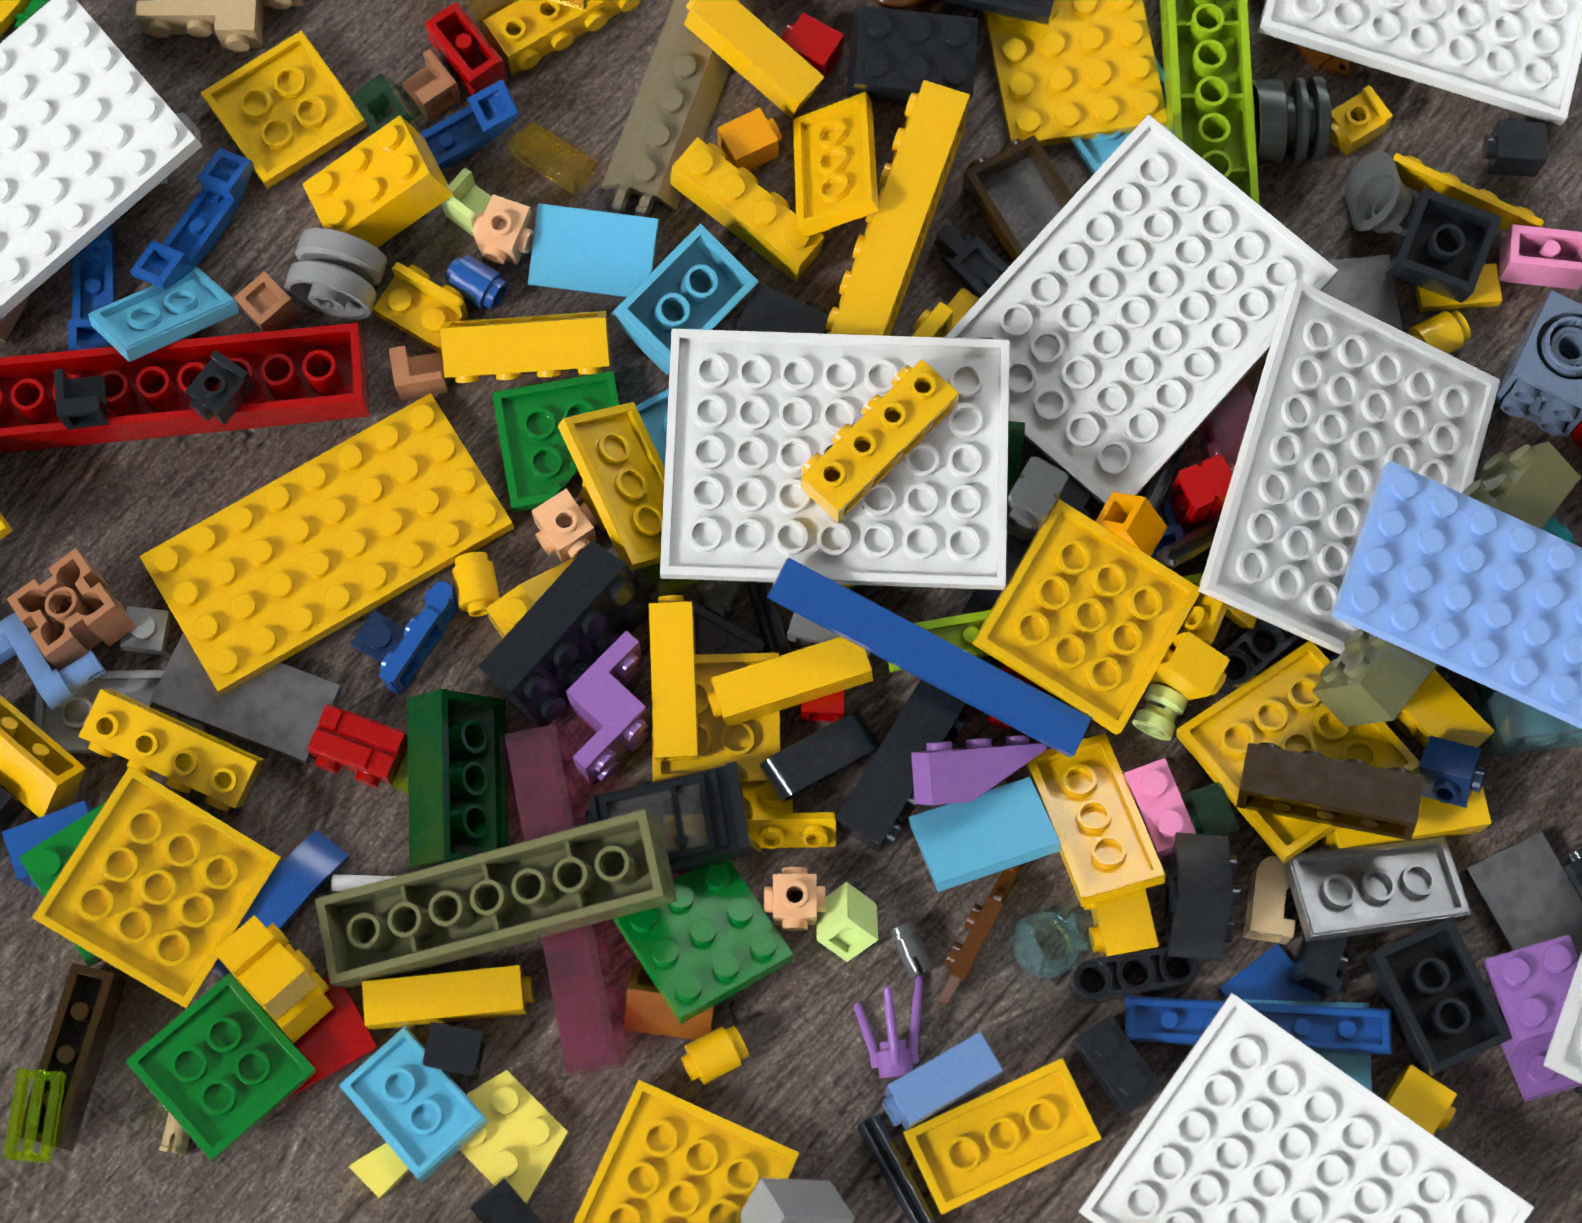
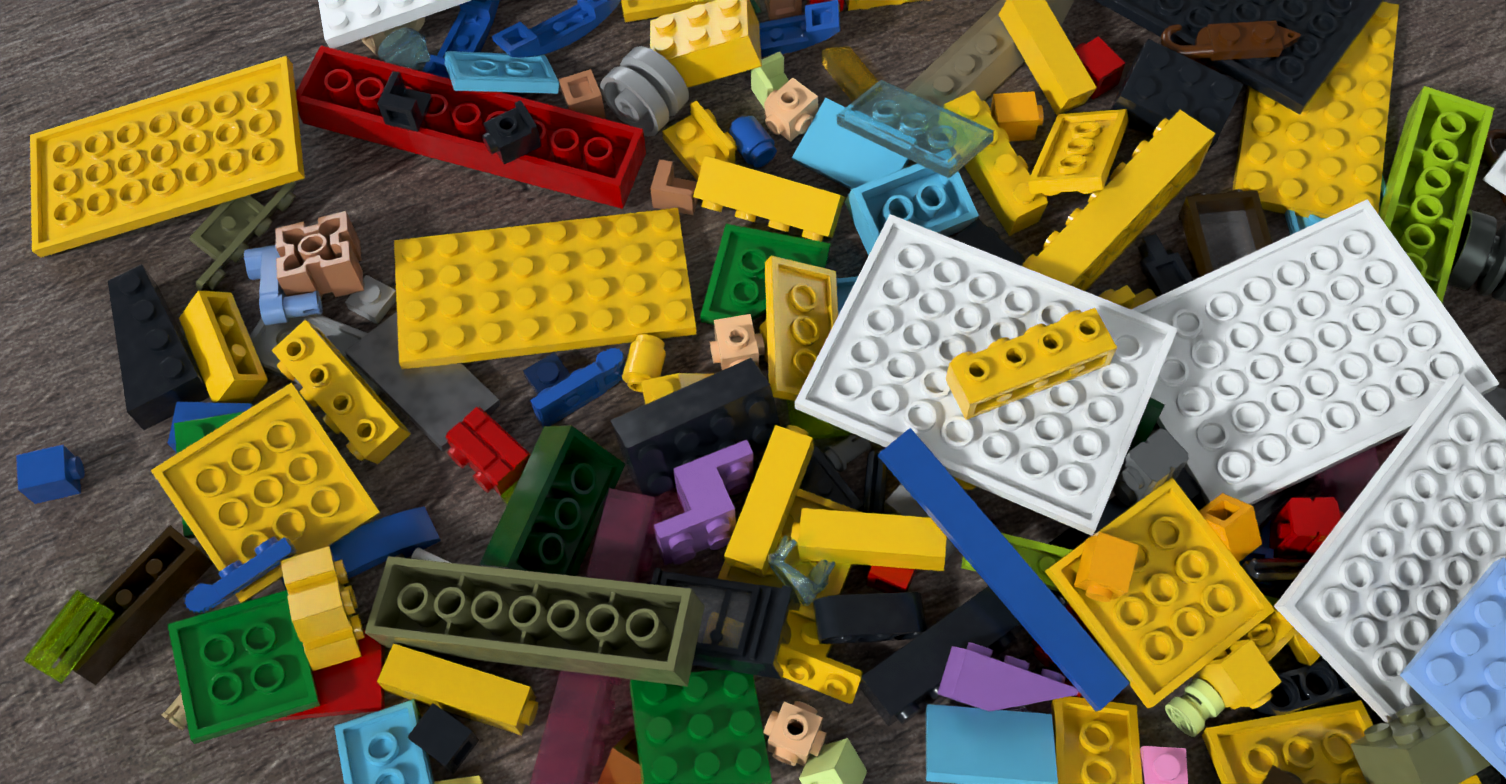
camera: 25 degrees right, 10 degrees down
(40, 329) = (404, 48): none -> clear light blue piece
(175, 984) = (239, 576): none -> blue hinge
(652, 208) = (915, 128): none -> clear light blue tile
(747, 752) = (804, 586): none -> clear light blue piece
(1029, 619) = (1106, 567): none -> light orange brick

